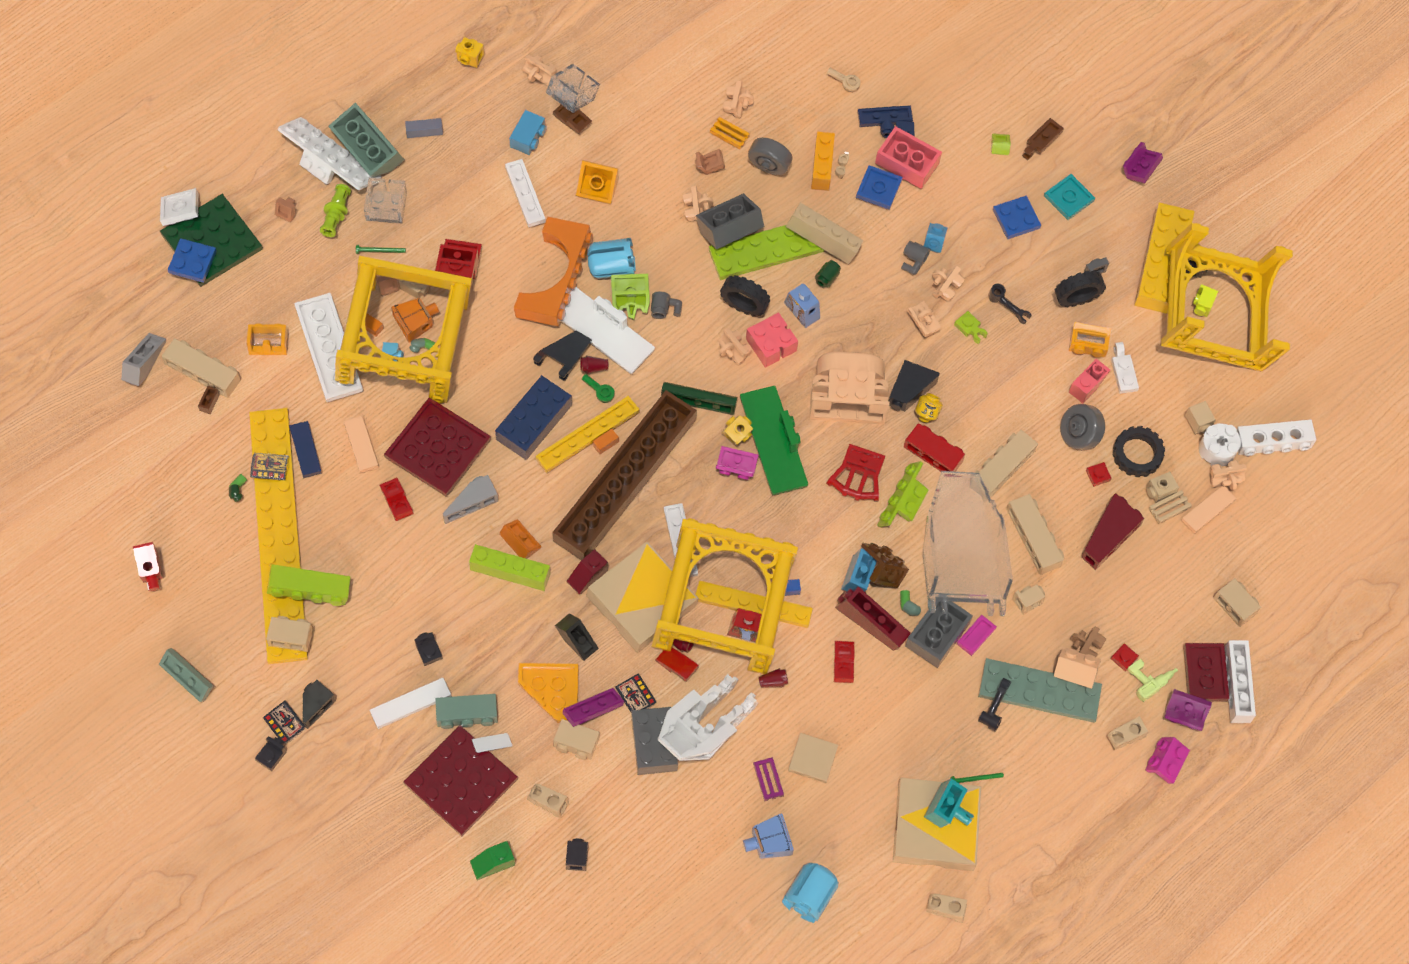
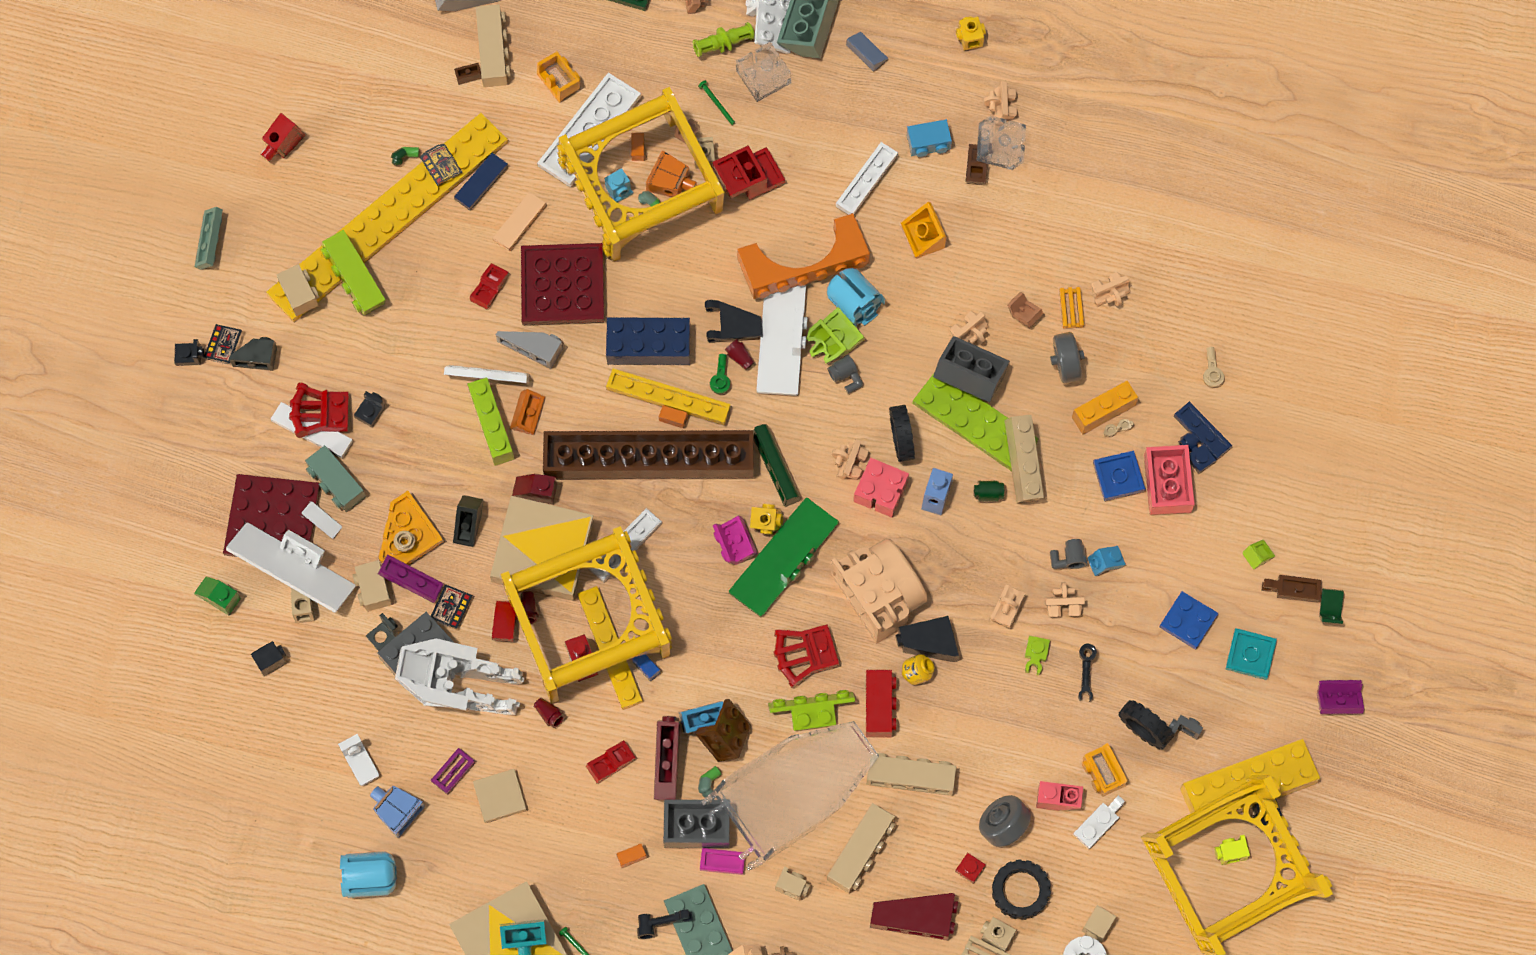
camera: 60 degrees right, 5 degrees up
(403, 673) = (333, 411): none -> red plate
(451, 562) = (489, 373): none -> white tile
(515, 782) = (293, 563): none -> white bracket
(560, 685) = (404, 535): none -> tan plate
(619, 749) = (388, 626): none -> pearl dark grey bracket
(711, 841) = (359, 760): none -> white bracket
(928, 694) = (631, 855): none -> orange piece
(1072, 125) = (1331, 606): none -> dark green bracket

